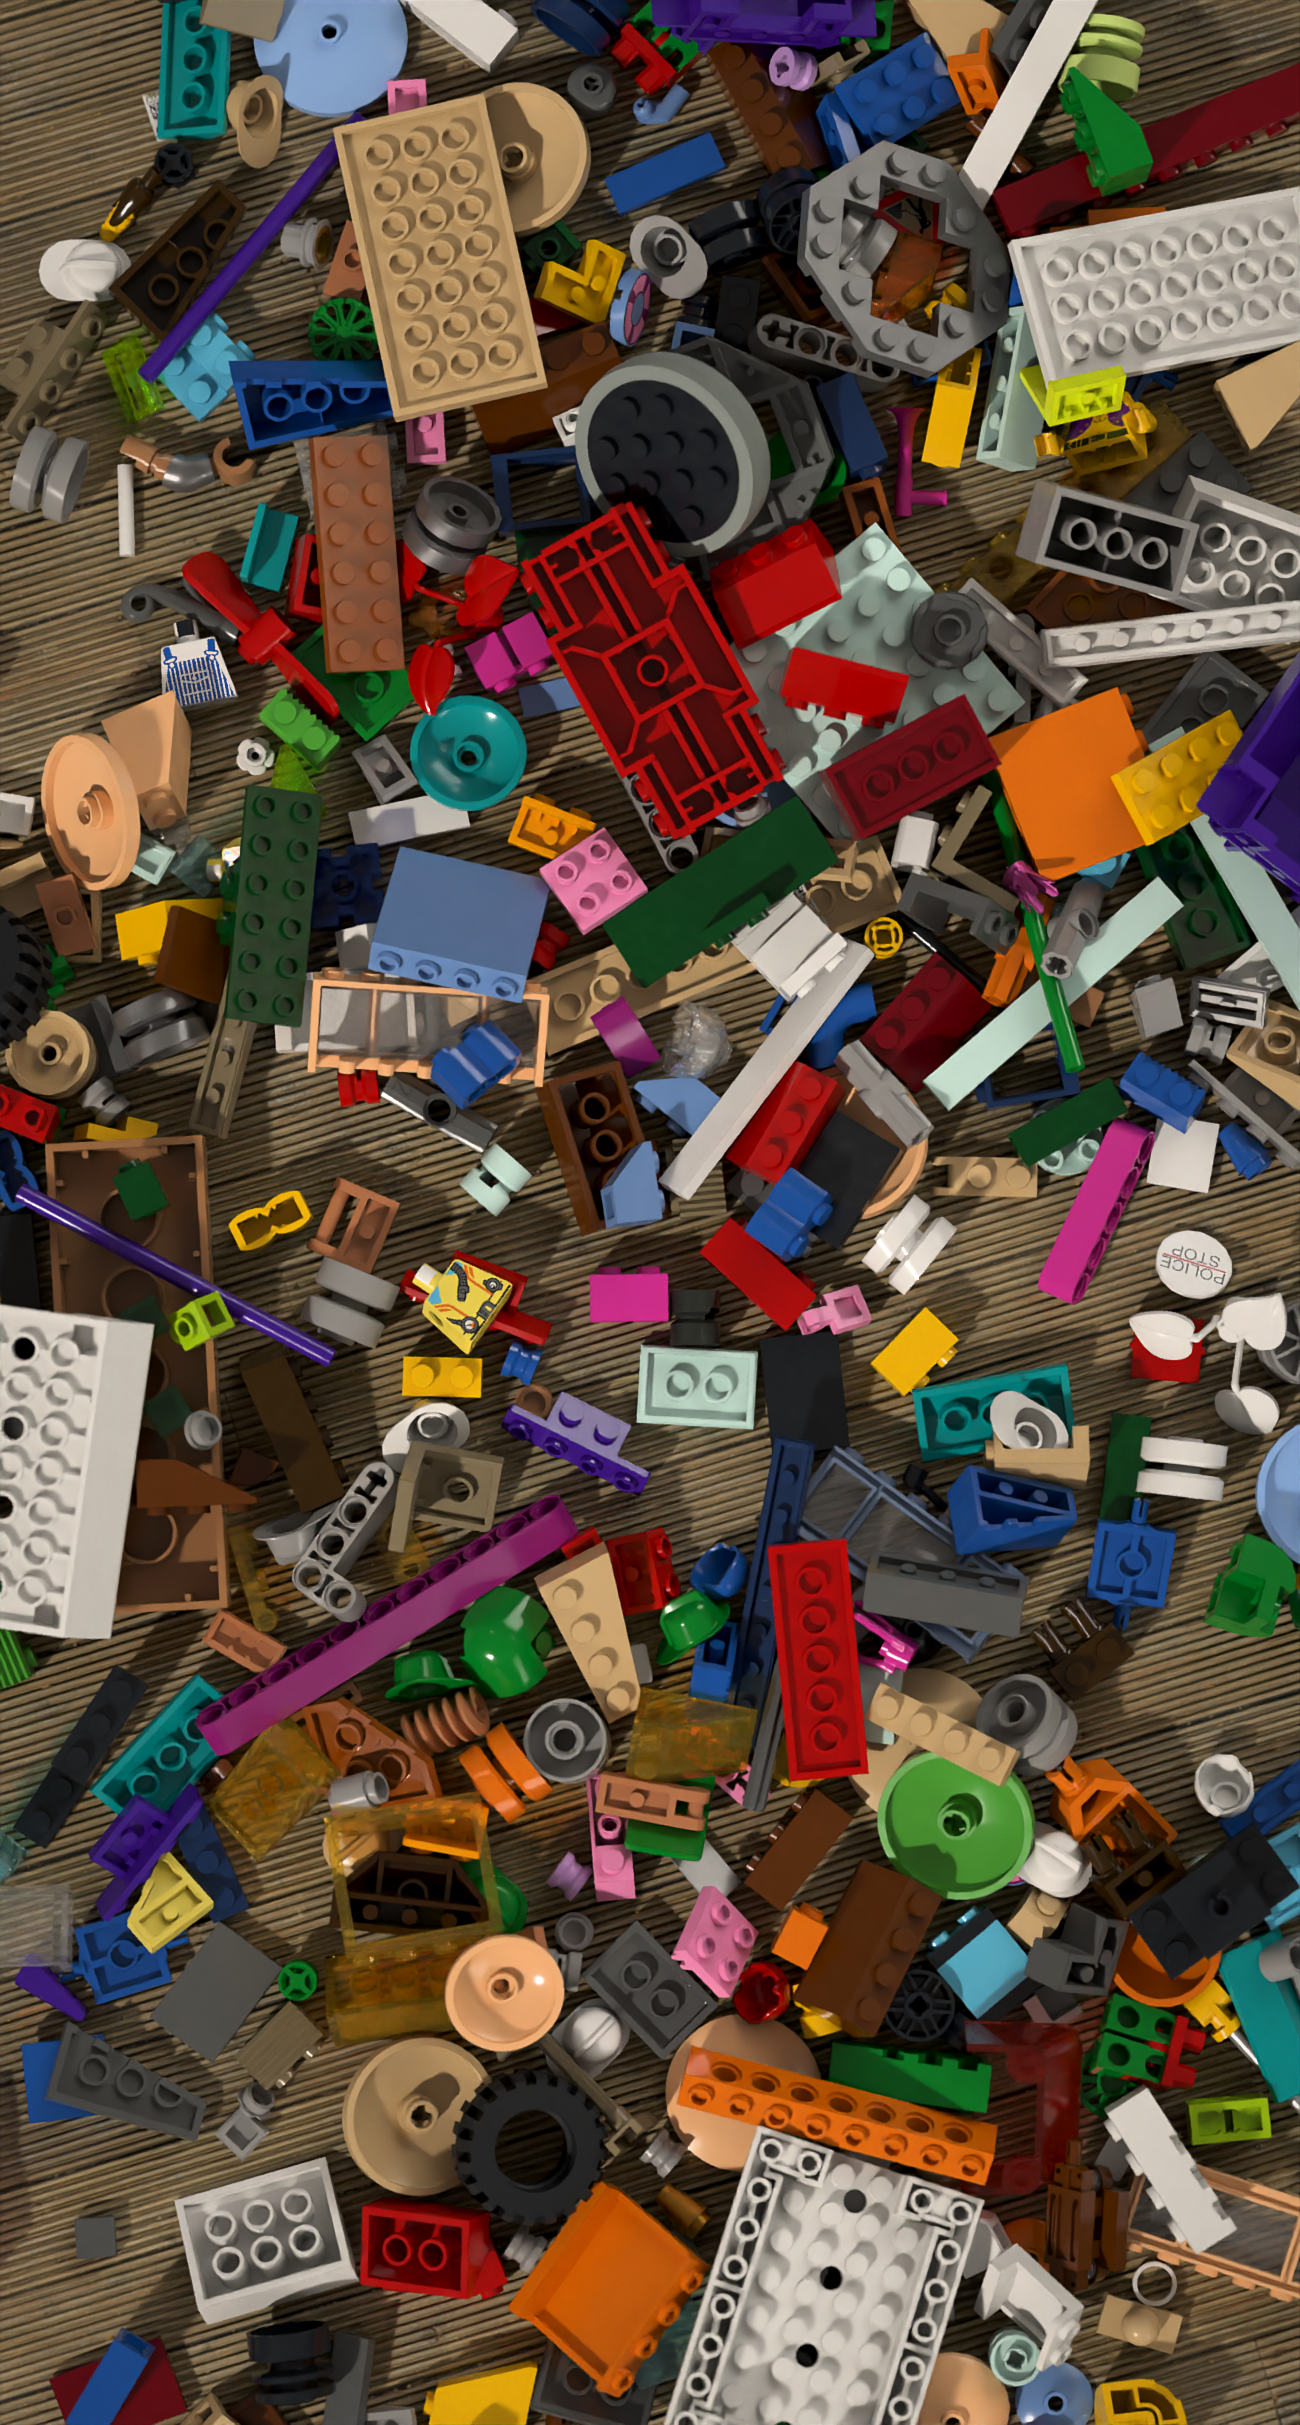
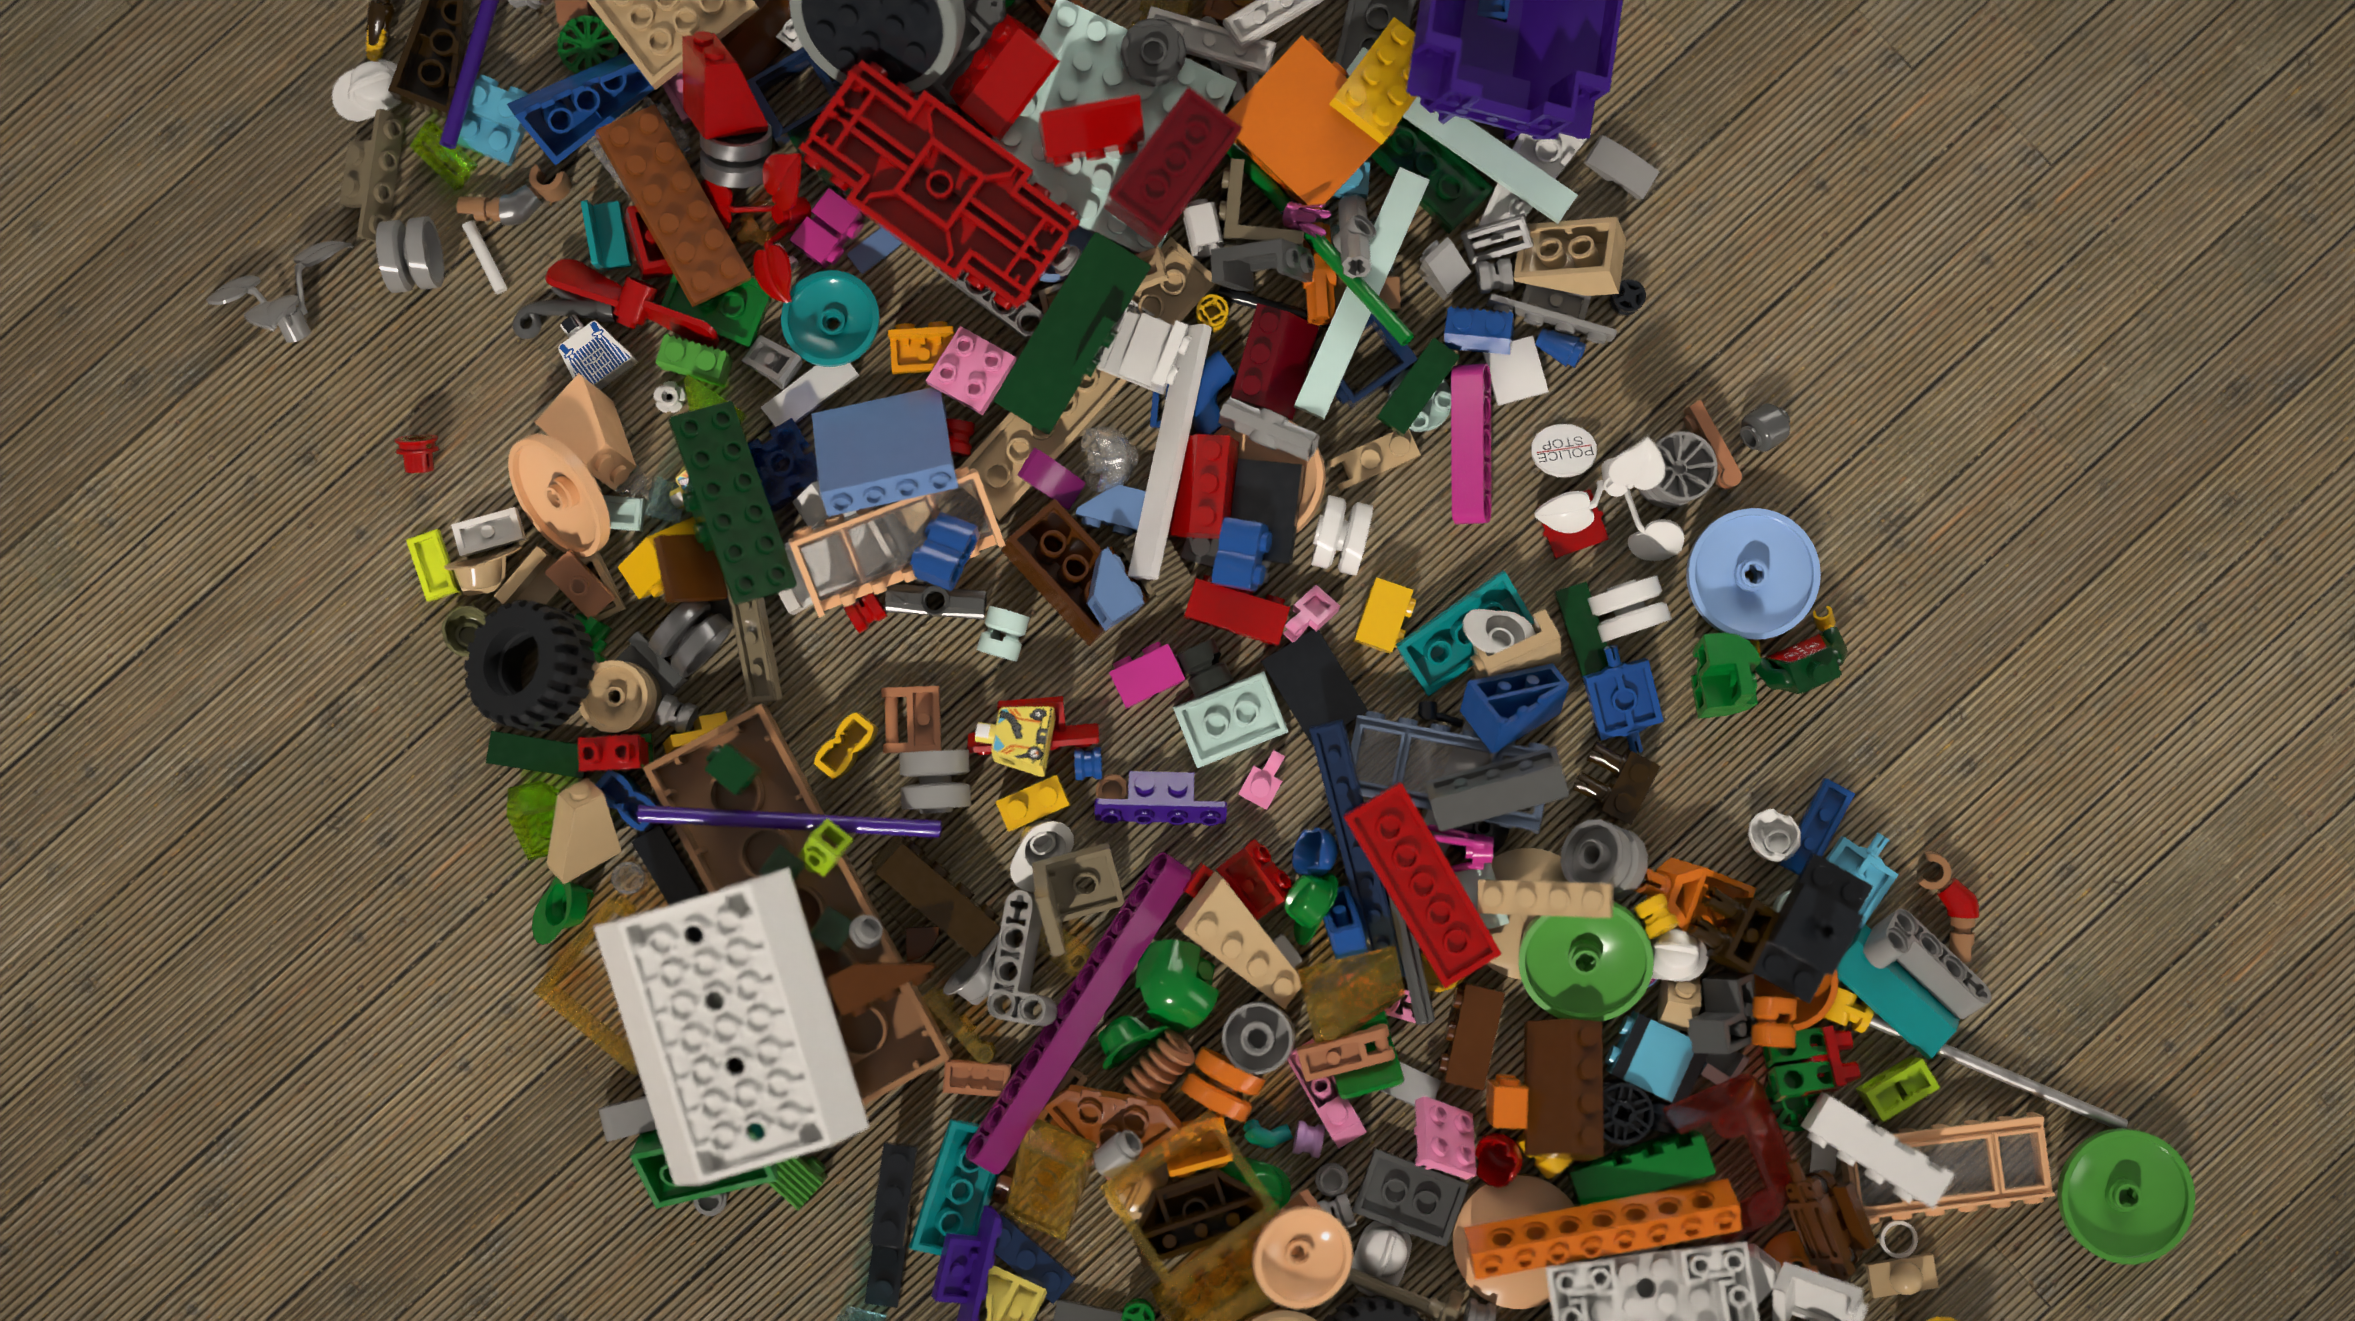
camera: 25 degrees left, 0 degrees up
(460, 456) = (716, 90): none -> red slope
(523, 1853) = (1266, 1138): none -> teal arm
(698, 1473) = (1261, 783): none -> bright pink plate
(1052, 1810) = (1656, 916): none -> yellow wheel
(1121, 1996) = (1774, 1022): none -> orange wheel

